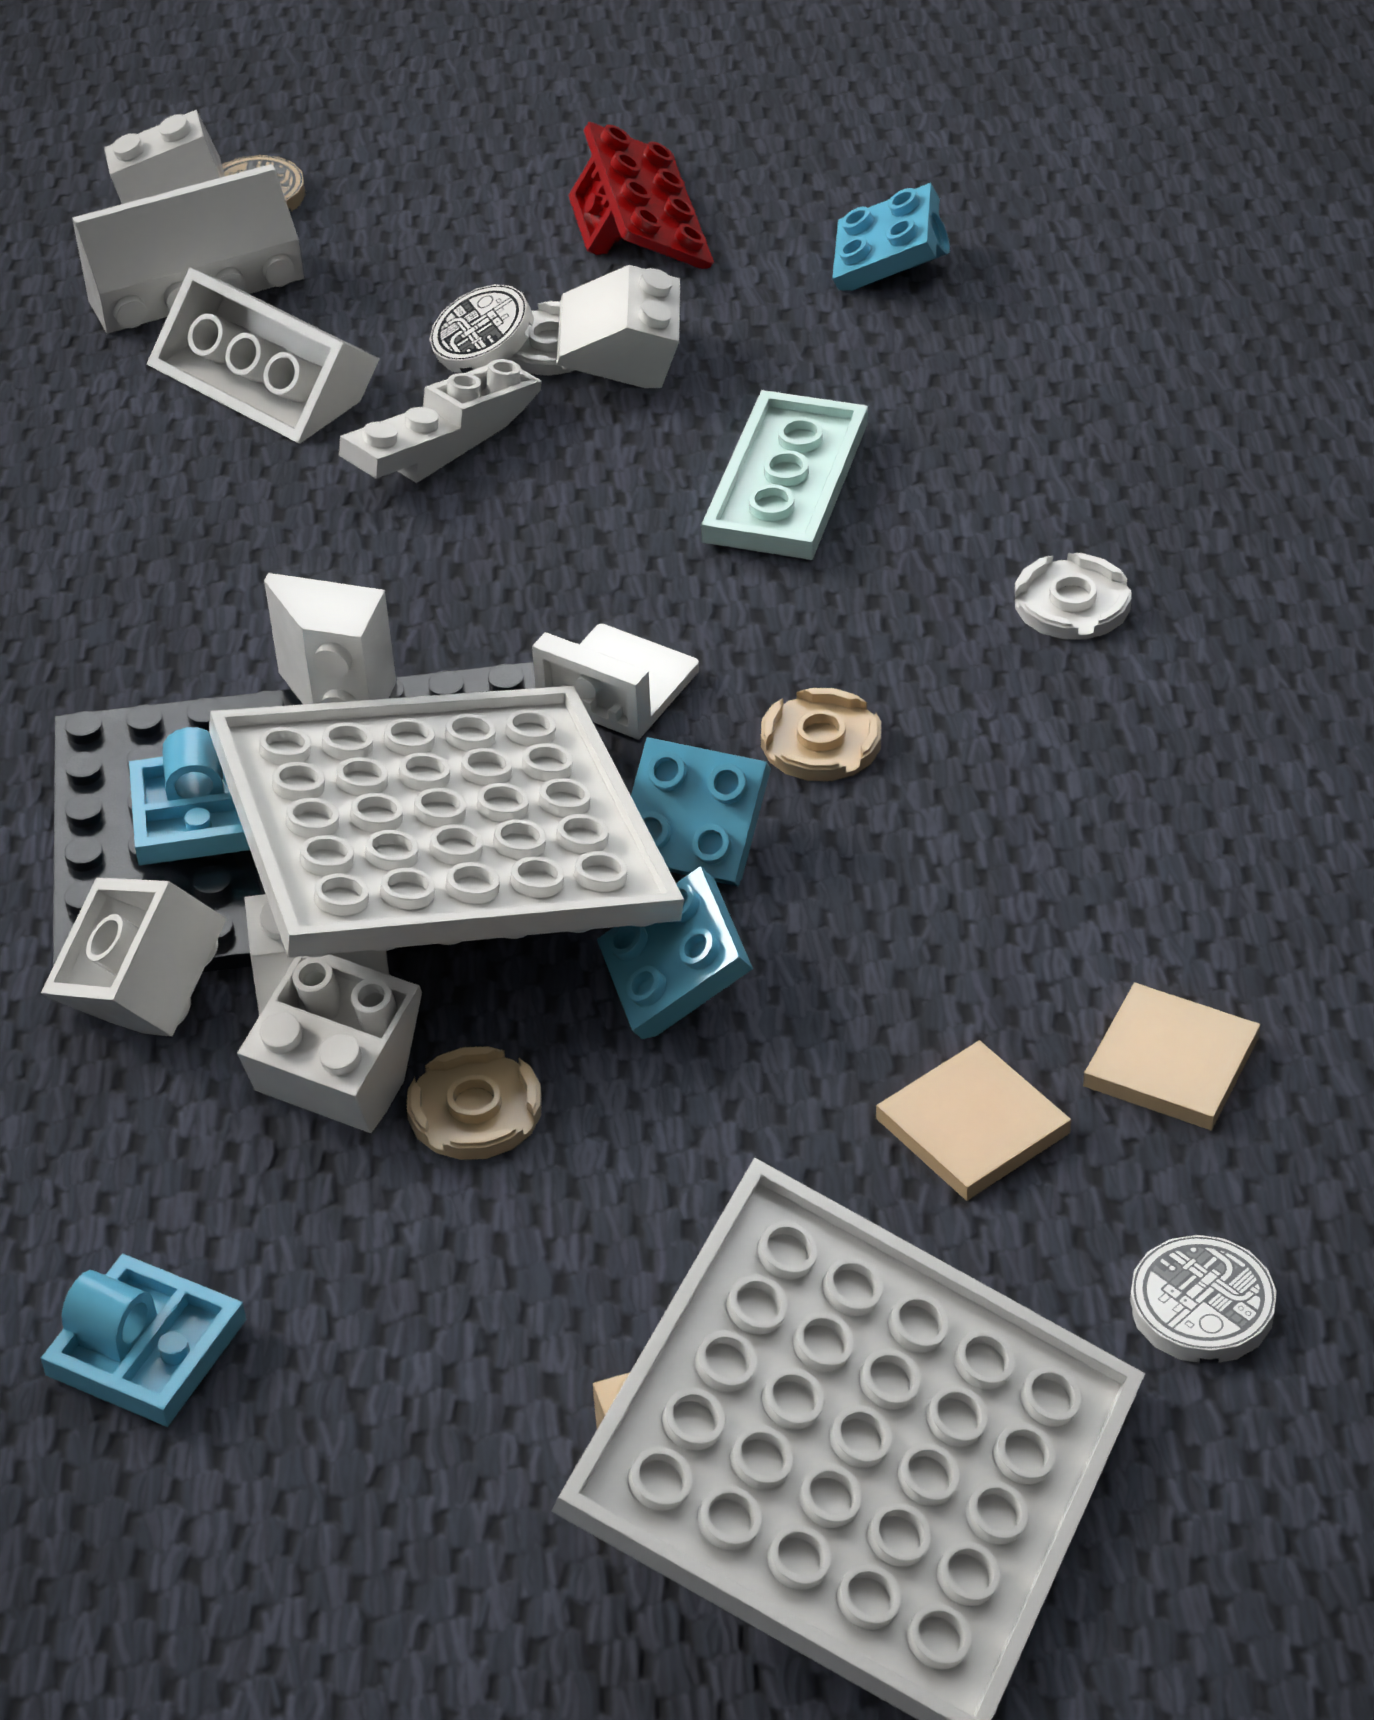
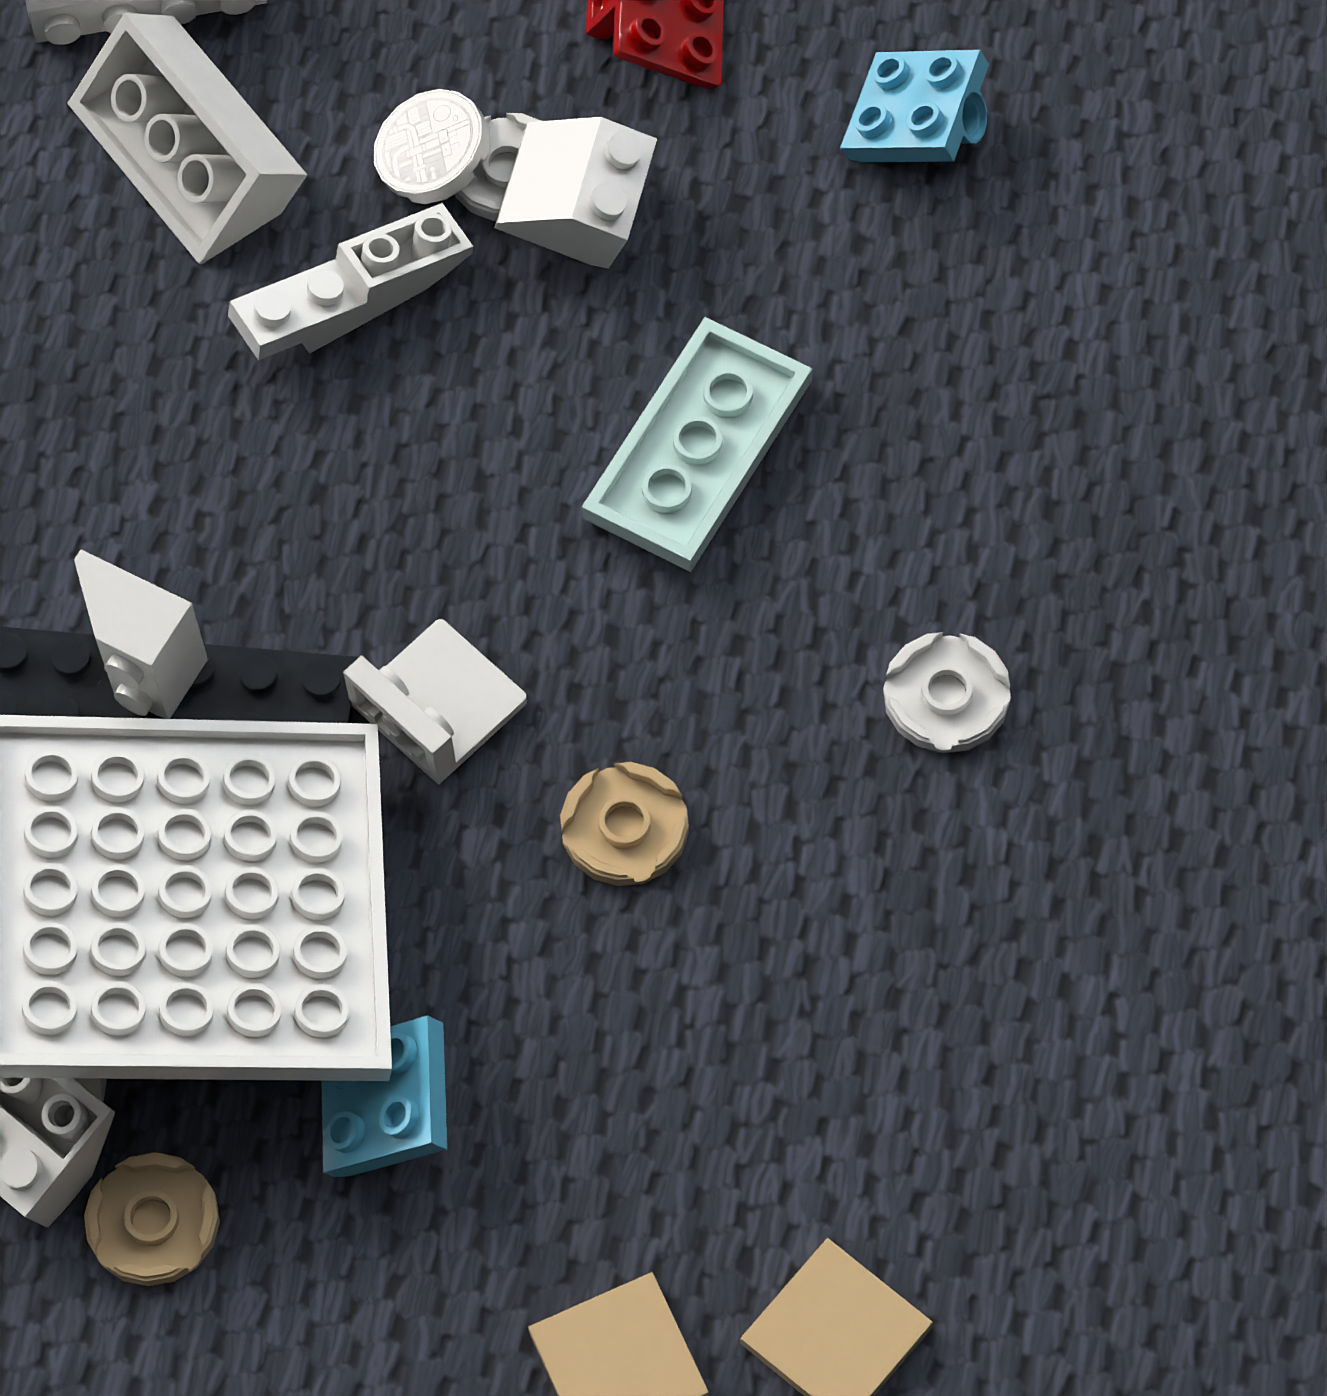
camera: 15 degrees right, 20 degrees up
(700, 806) = (457, 915): medium azure plate -> none

